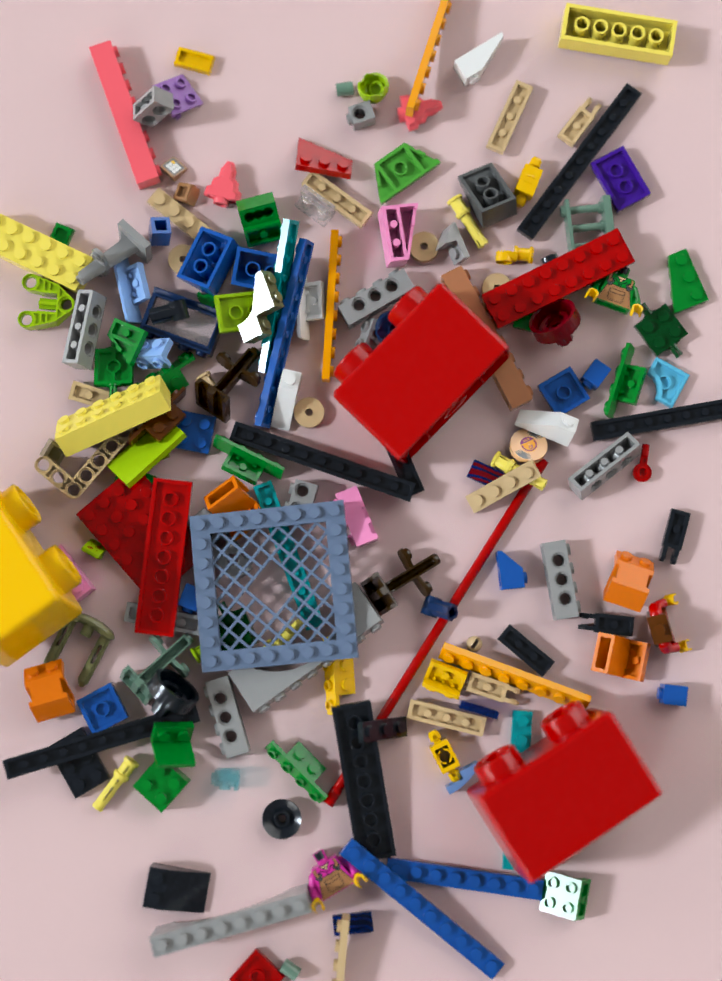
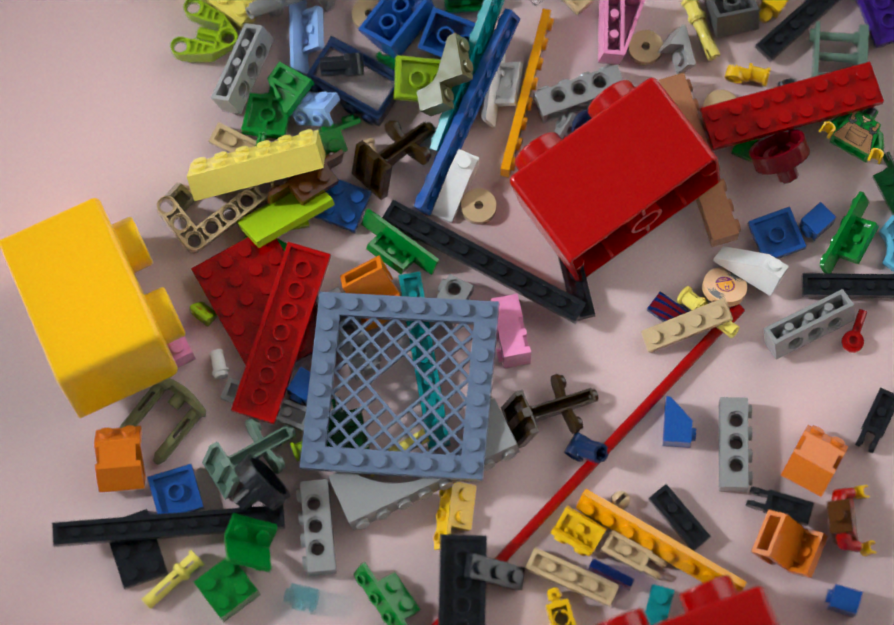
camera: 15 degrees right, 10 degrees down
(116, 591) = (220, 370): none -> white pin

